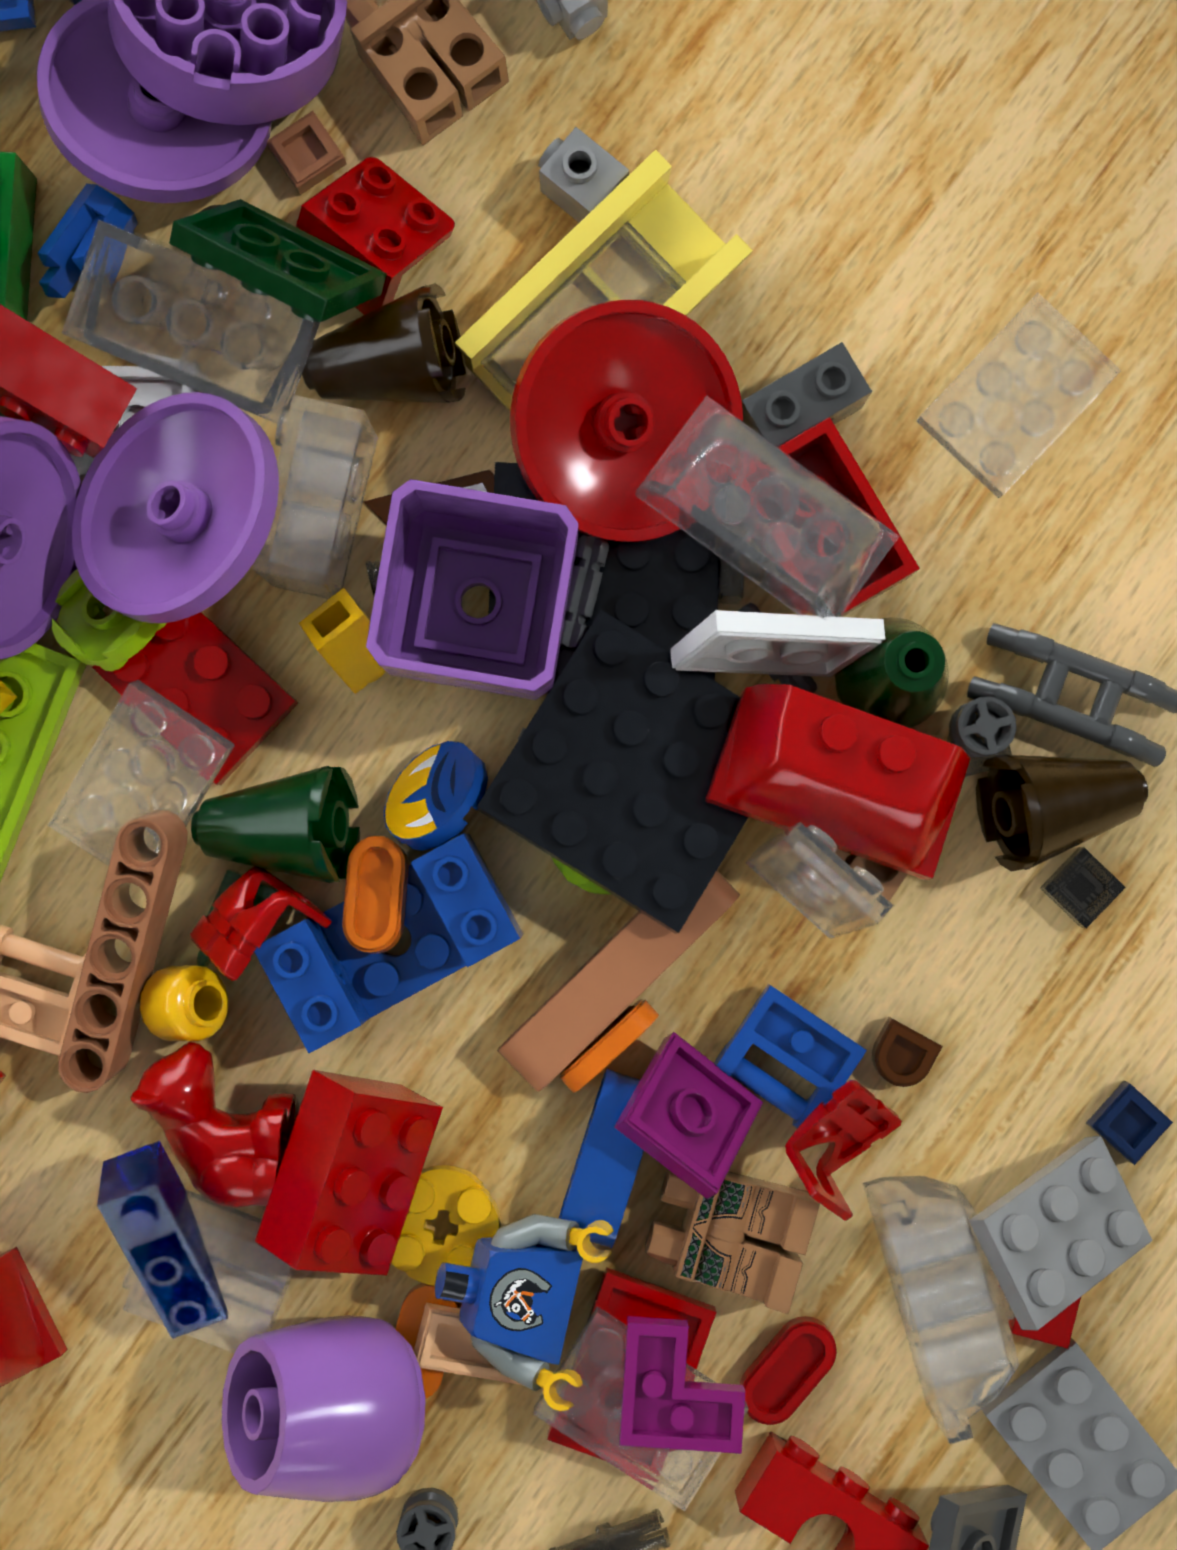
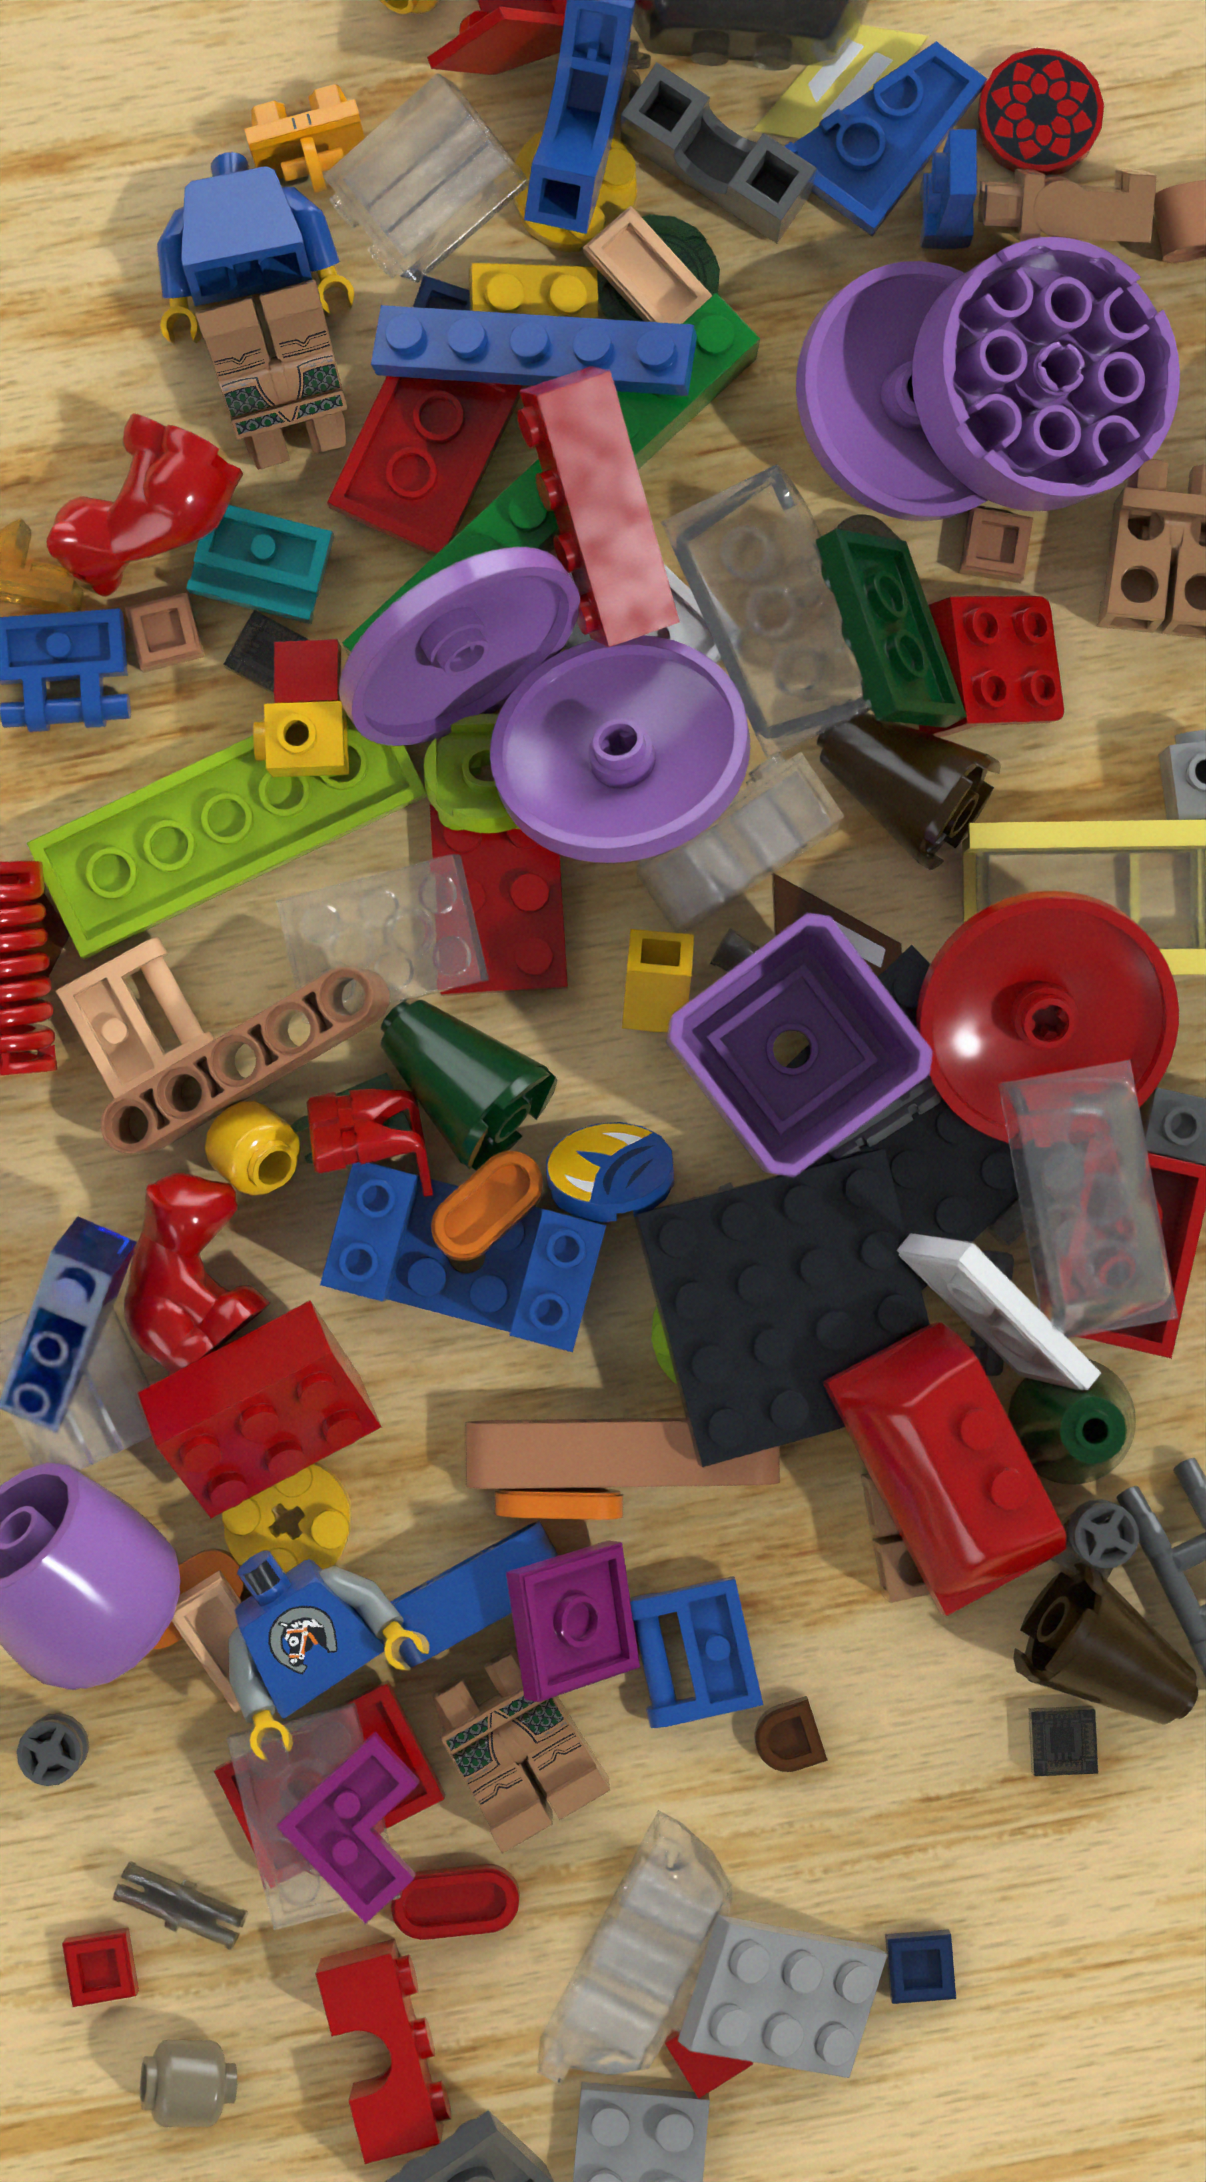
camera: 45 degrees right, 0 degrees up
(71, 239) = (746, 450): blue rock -> none
(818, 882) = (852, 1532): clear plate -> none
(851, 1125) = (694, 1752): red piece -> none

